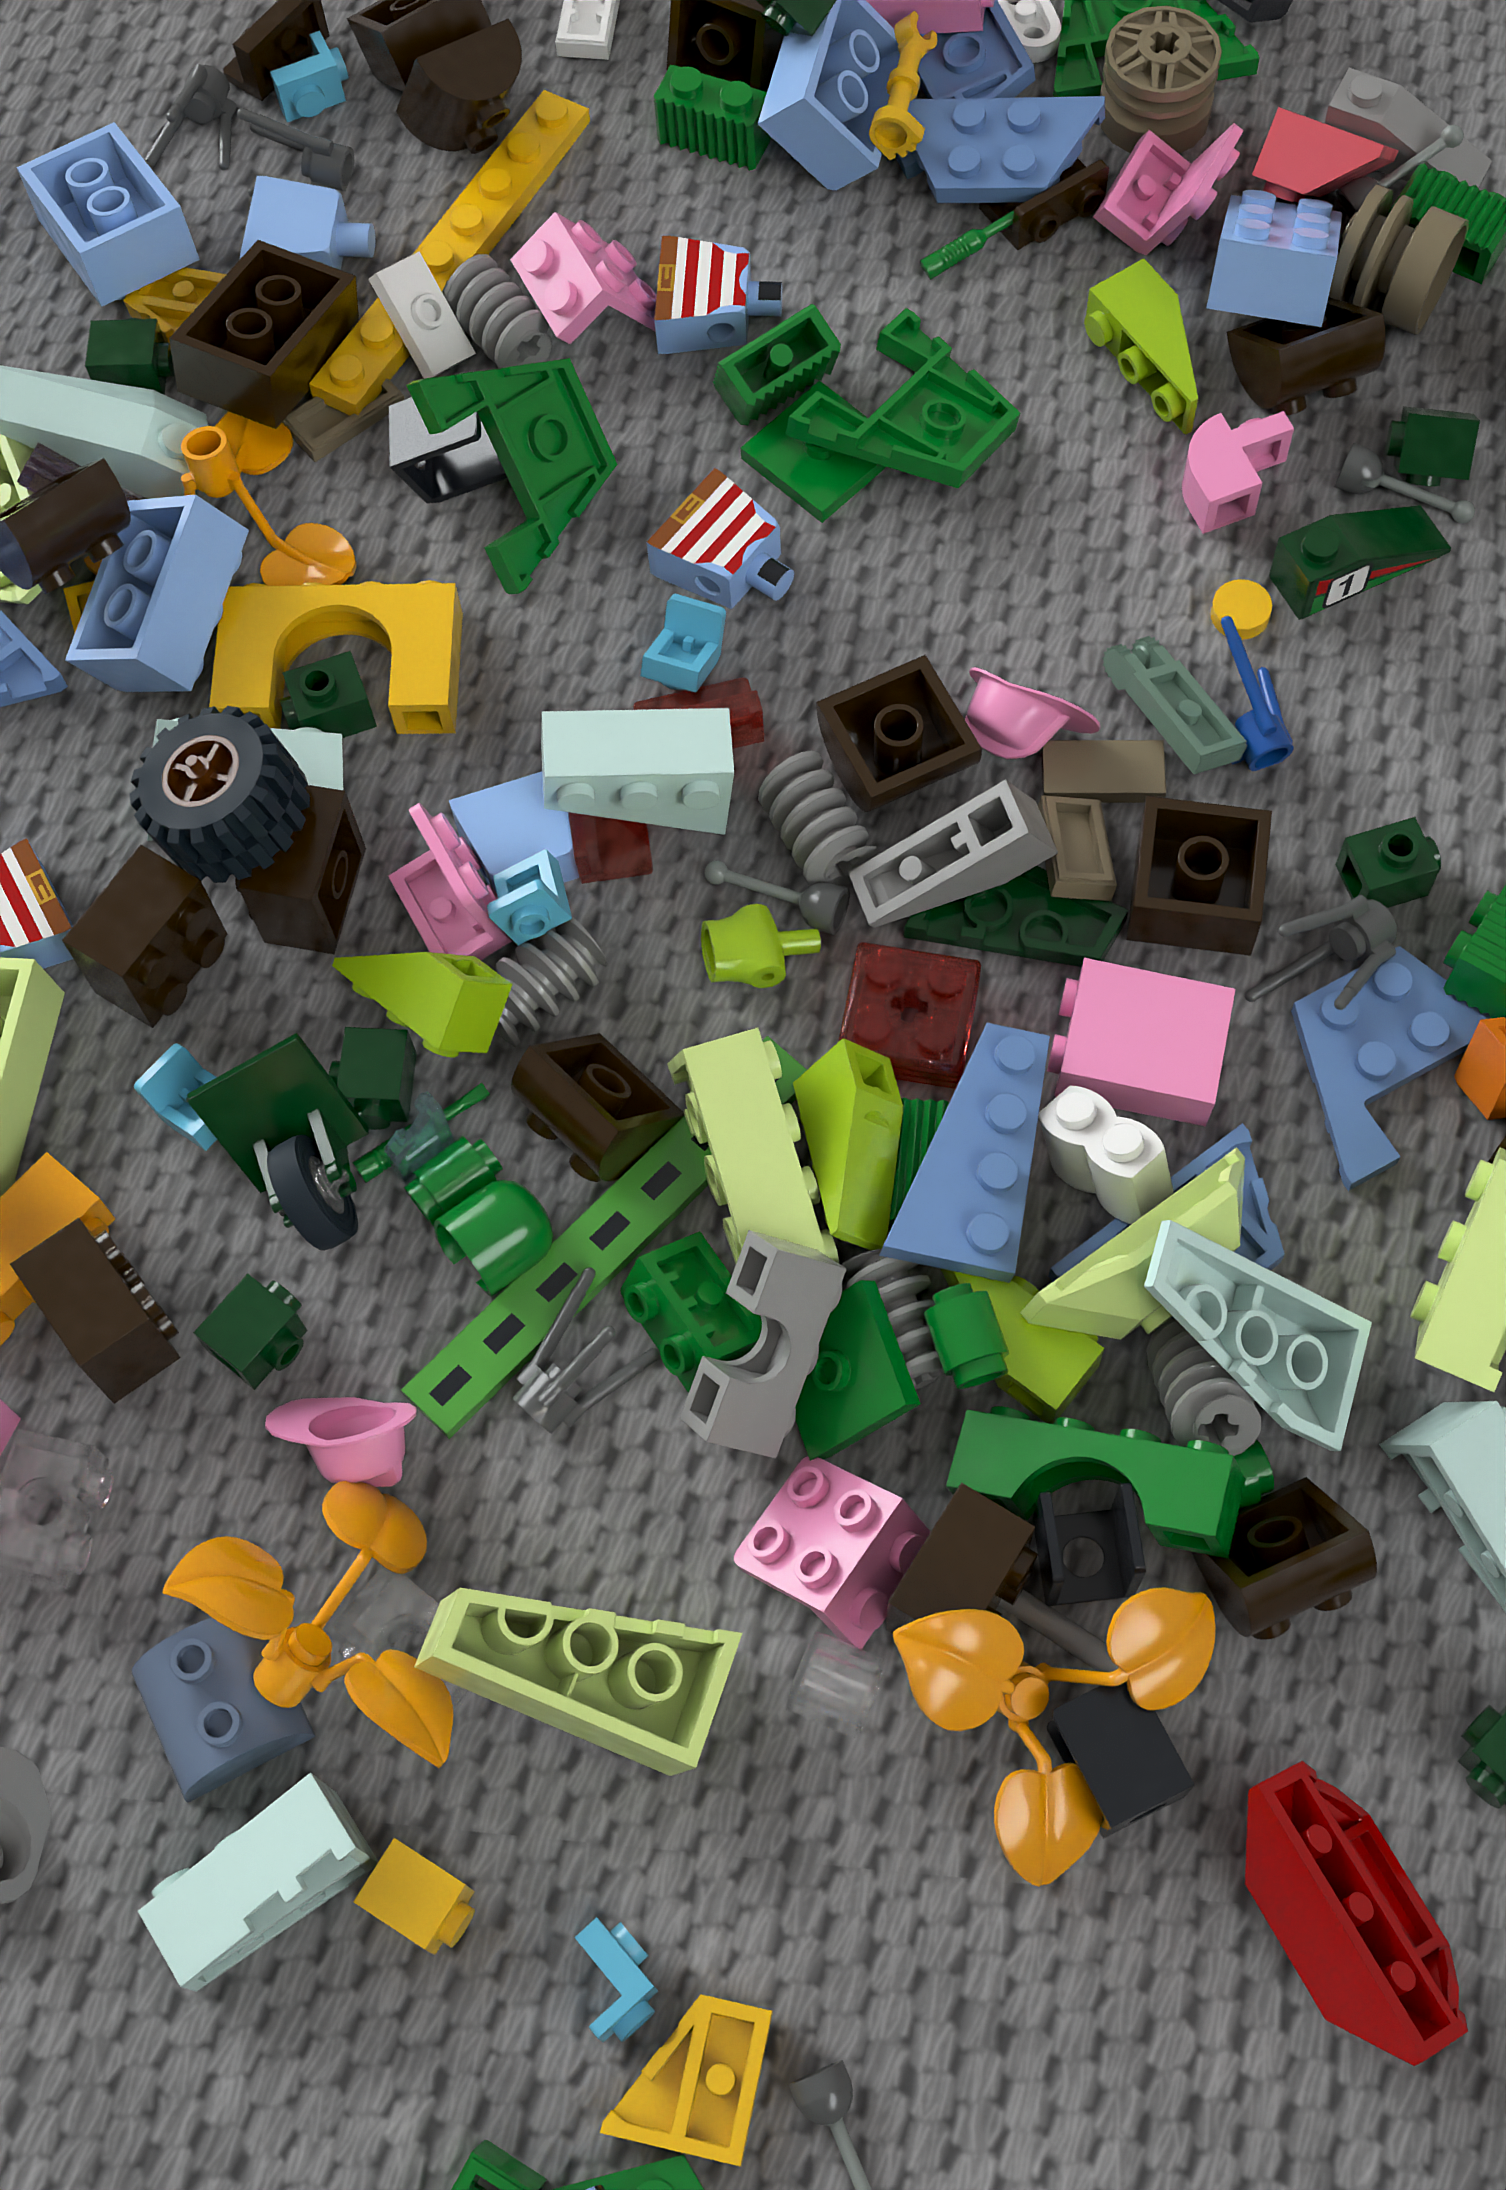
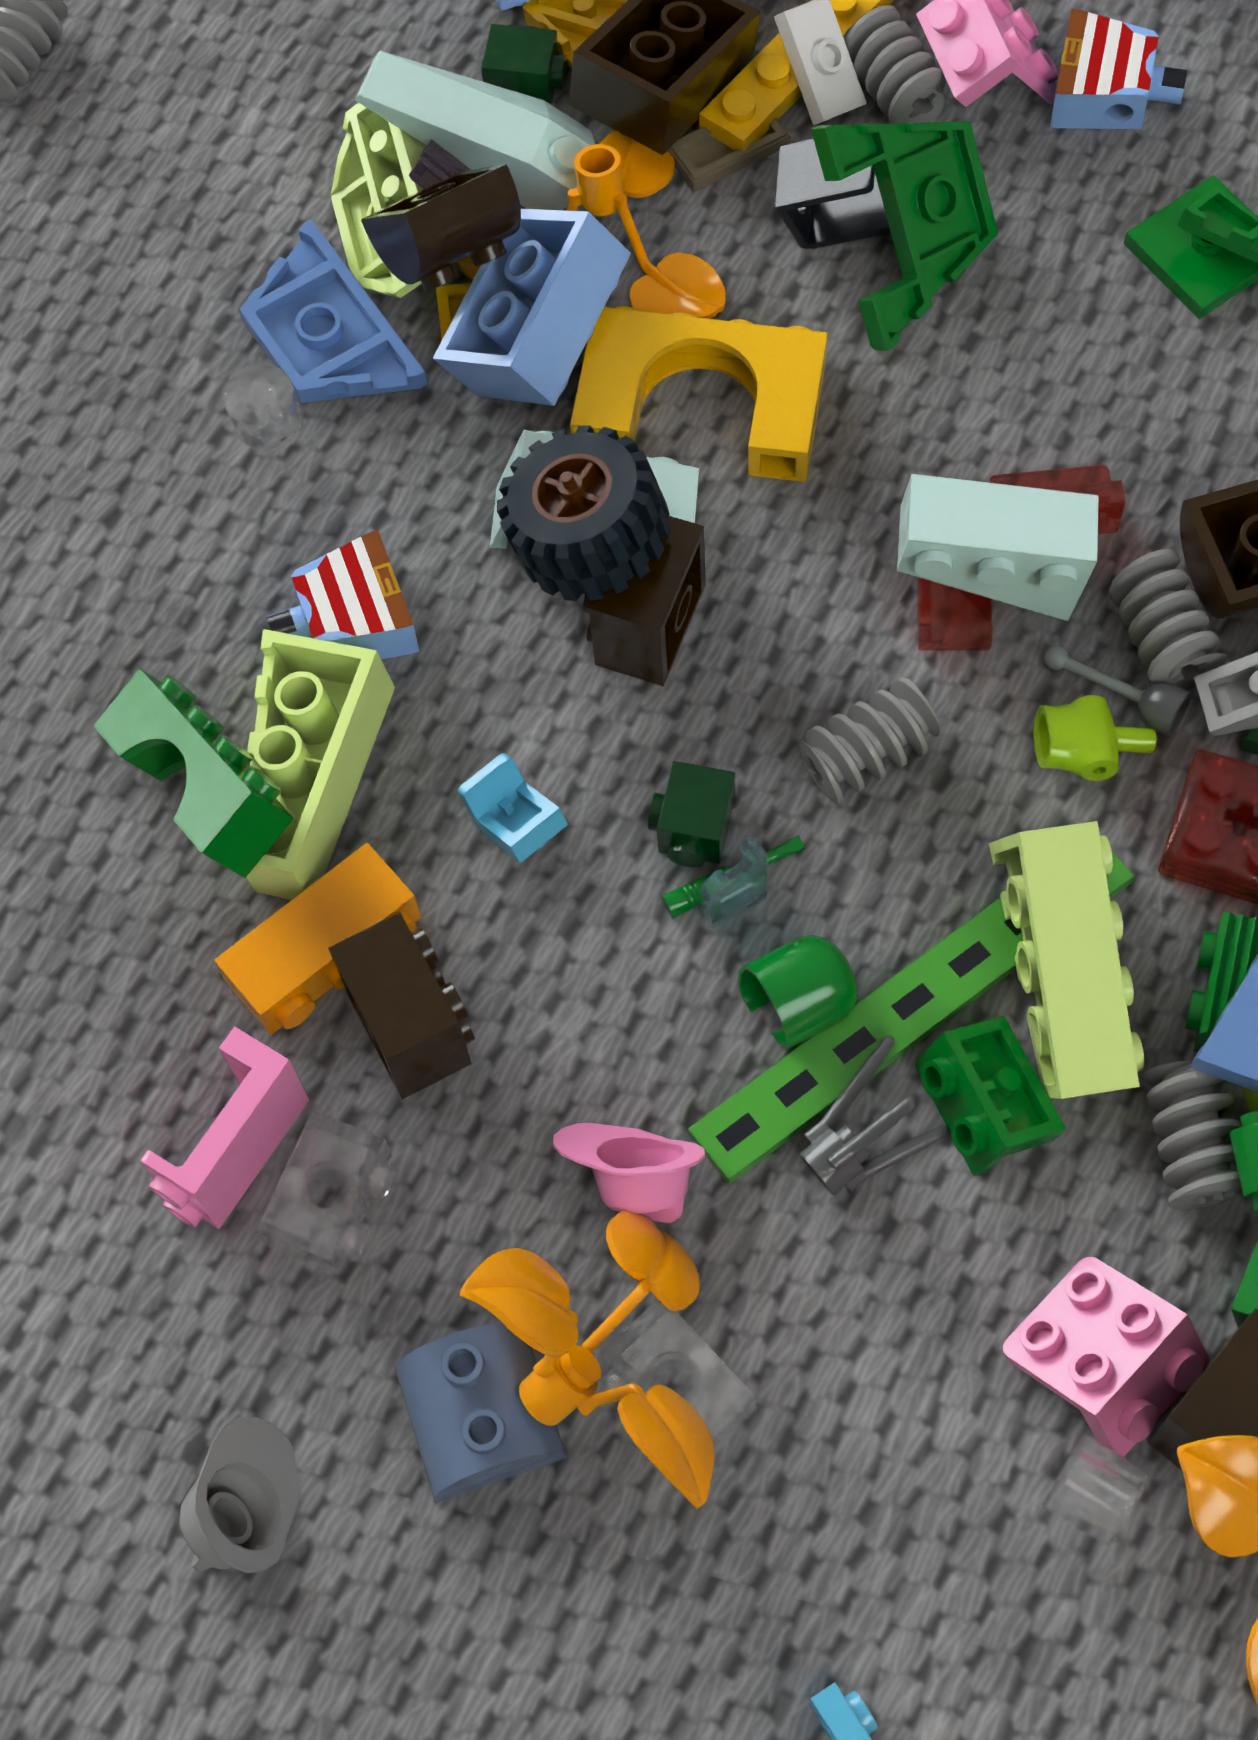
camera: 10 degrees right, 0 degrees up
(147, 937) = (487, 644): dark brown brick -> none
(254, 1330) = (550, 1048): dark green brick -> none
(257, 1883) = (499, 1593): light aqua wedge -> none
(289, 1137) = (607, 859): dark green plate -> none
(328, 697) = (687, 429): dark green brick -> none
(417, 1898) = (655, 1634): yellow brick -> none
(439, 996) = (775, 743): lime slope -> none
(447, 892) = (789, 648): bright pink bracket -> none
(452, 1177) = (761, 926): green brick -> none
(512, 825) = (862, 601): light blue torso -> none
(530, 898) = (873, 658): medium azure bracket -> none
(588, 1672) = (868, 1447): yellowish green wedge -> none
(593, 1104) = (911, 873): dark brown brick -> none
(687, 644) = (1051, 424): medium azure bracket -> none
(720, 545) = (1096, 329): torso -> none
(754, 1398) = (1047, 1188): light grey arch -> none
(777, 365) = (1175, 154): green brick -> none
(853, 1138) = (1173, 944): lime slope -> none
(857, 1376) = (1137, 1177): green plate -> none

